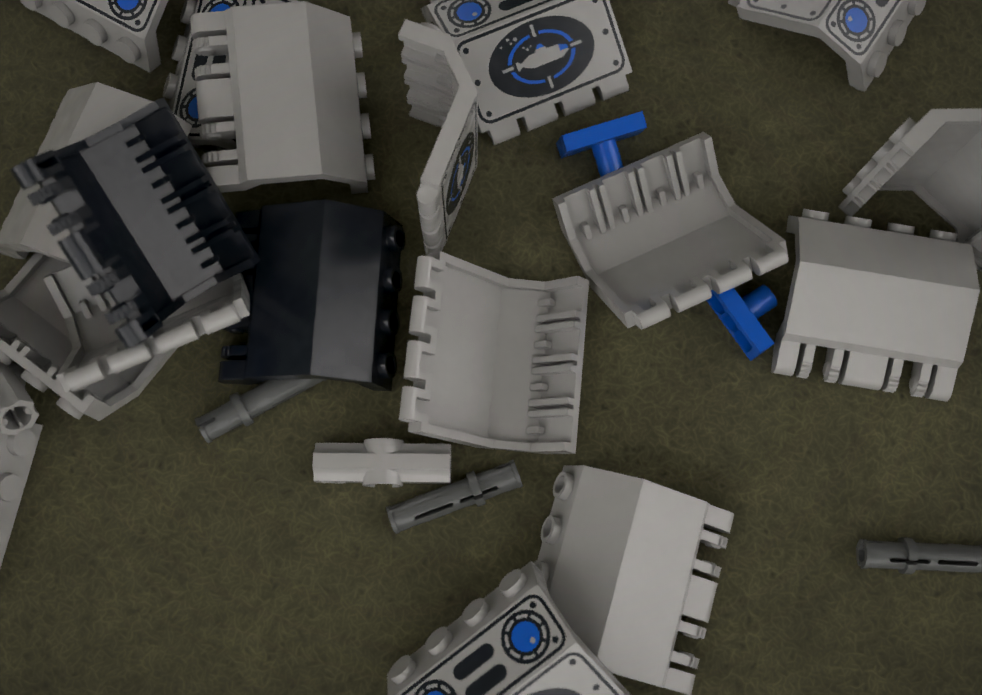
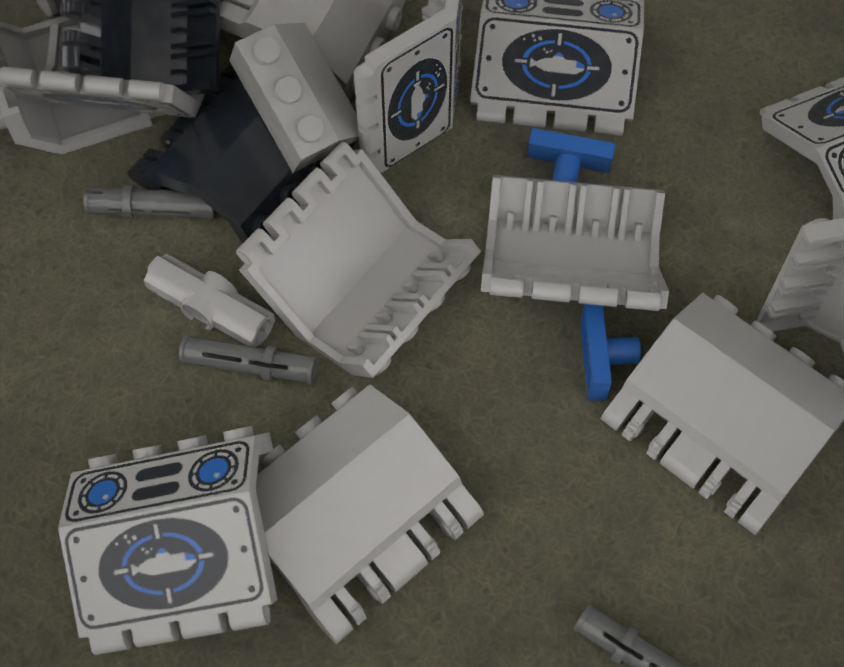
camera: 35 degrees right, 15 degrees down
(347, 230) = (295, 92): none -> light grey slope

